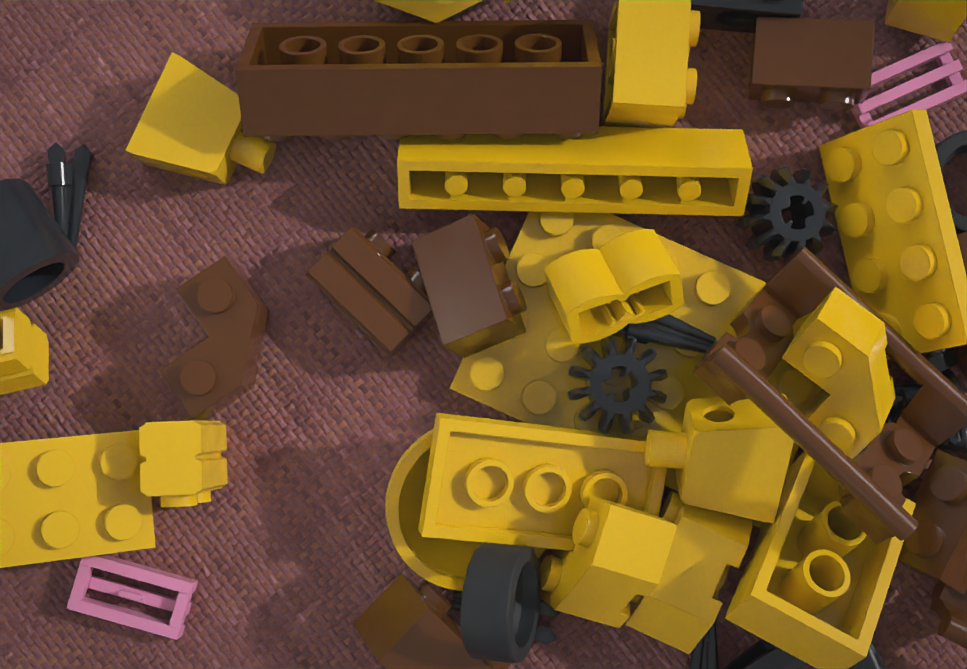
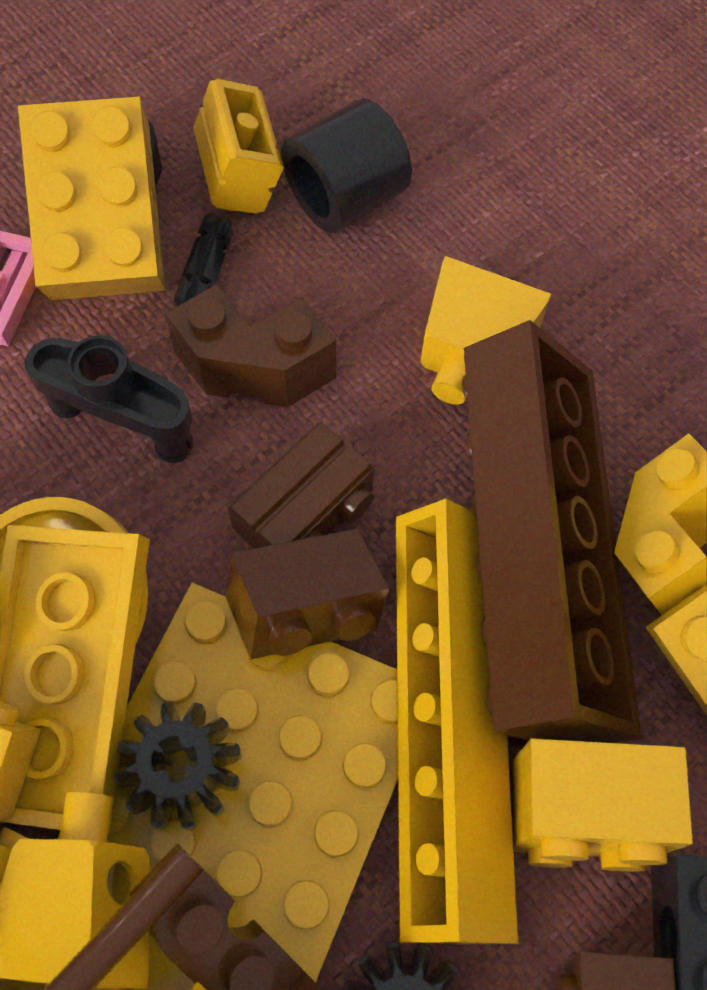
camera: 85 degrees right, 20 degrees down
(68, 187) = (407, 227): black piece -> none
(111, 392) = (205, 257): none -> black axle
(182, 461) = (124, 301): yellow brick -> none
(288, 433) = (129, 398): none -> black connector
(614, 285) = (300, 756): yellow brick -> none
(669, 332) = (255, 819): black piece -> none

